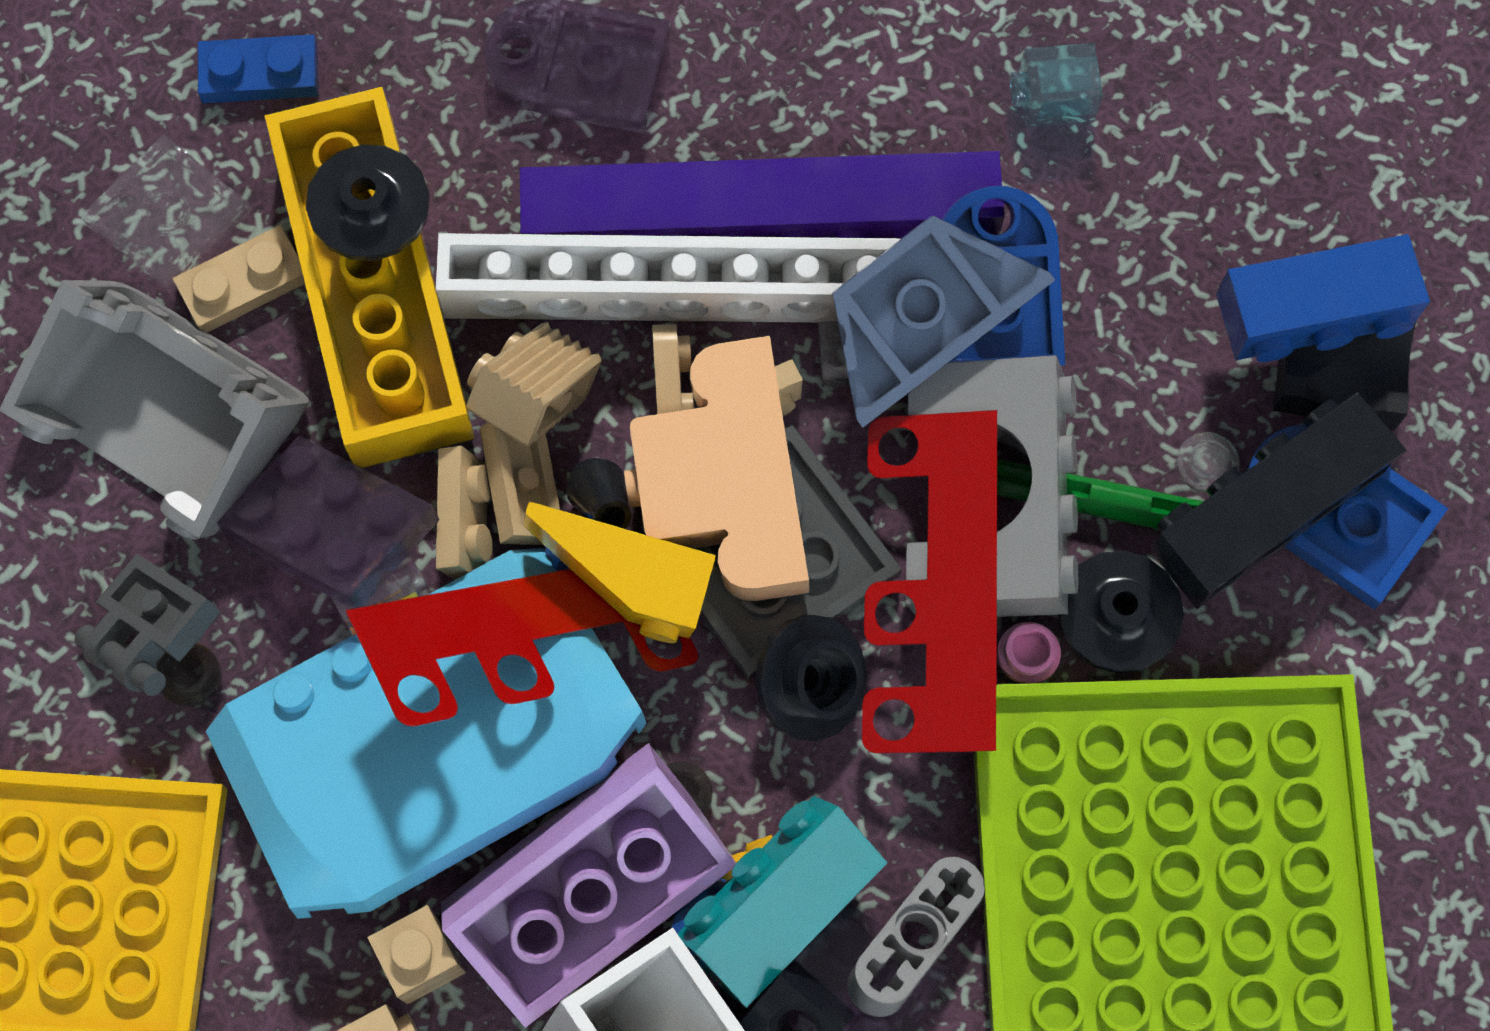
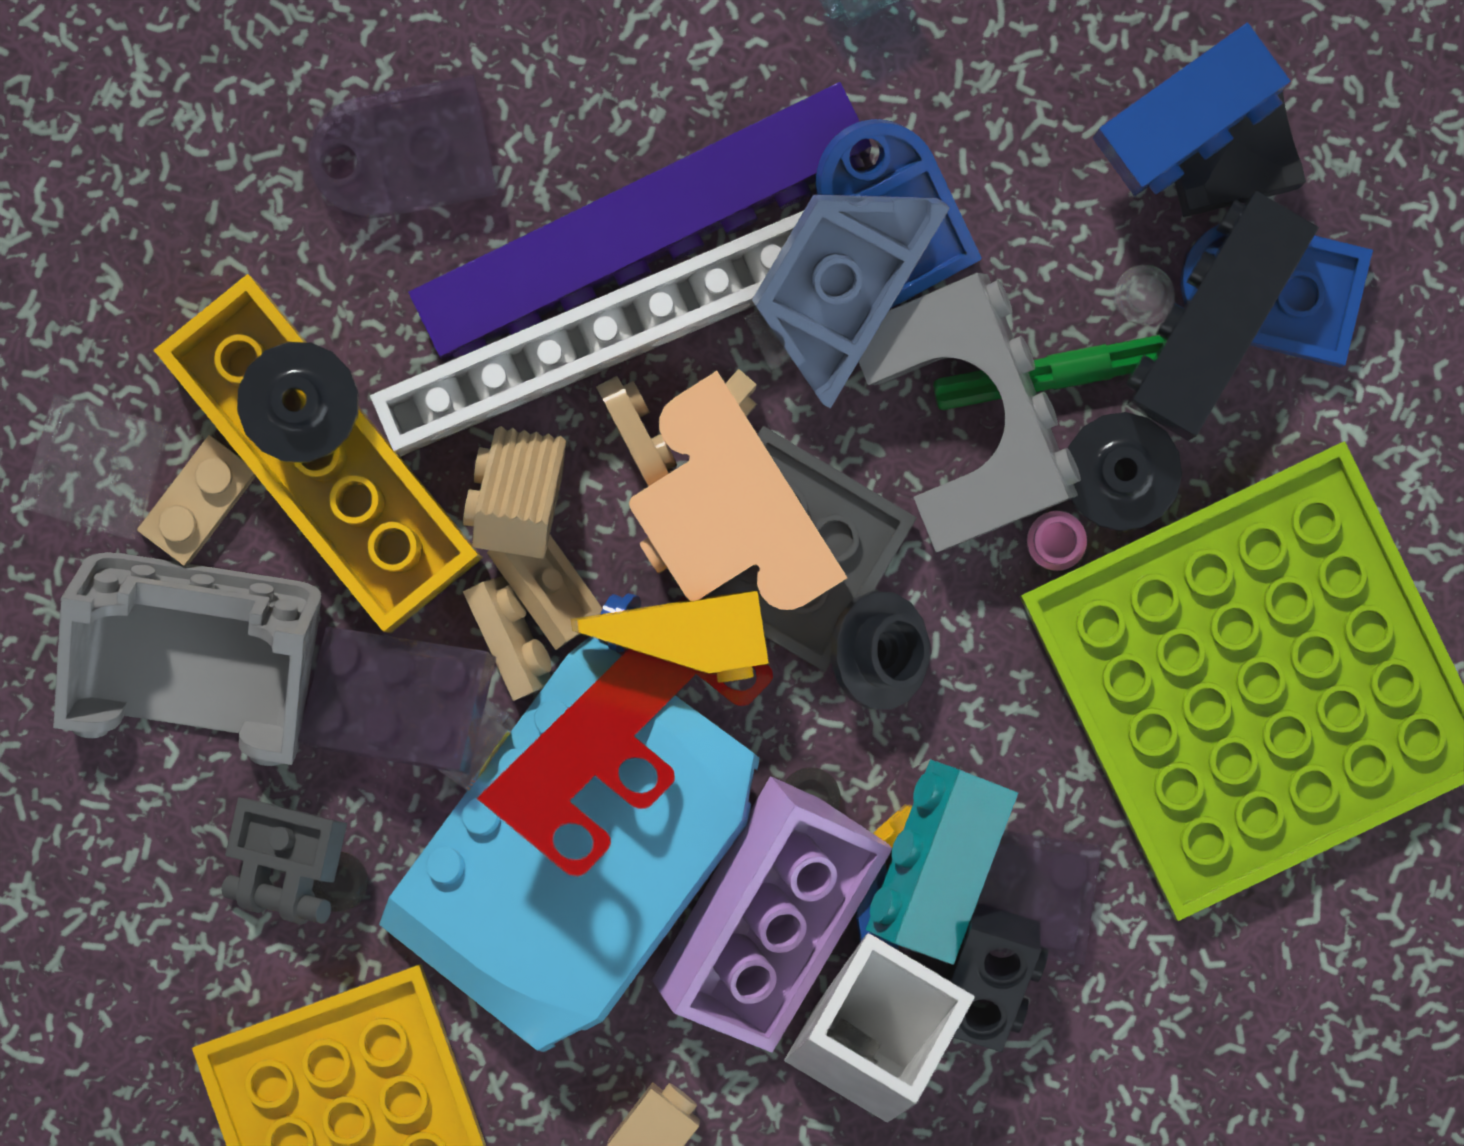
camera: 25 degrees left, 15 degrees up
(258, 68) = (107, 287): blue plate -> none
(416, 955) = (654, 1035): tan brick -> none
(600, 492) = (622, 566): black cone -> none
(915, 962) = (1040, 870): light grey beam -> none
(960, 593) = (979, 526): red piece -> none

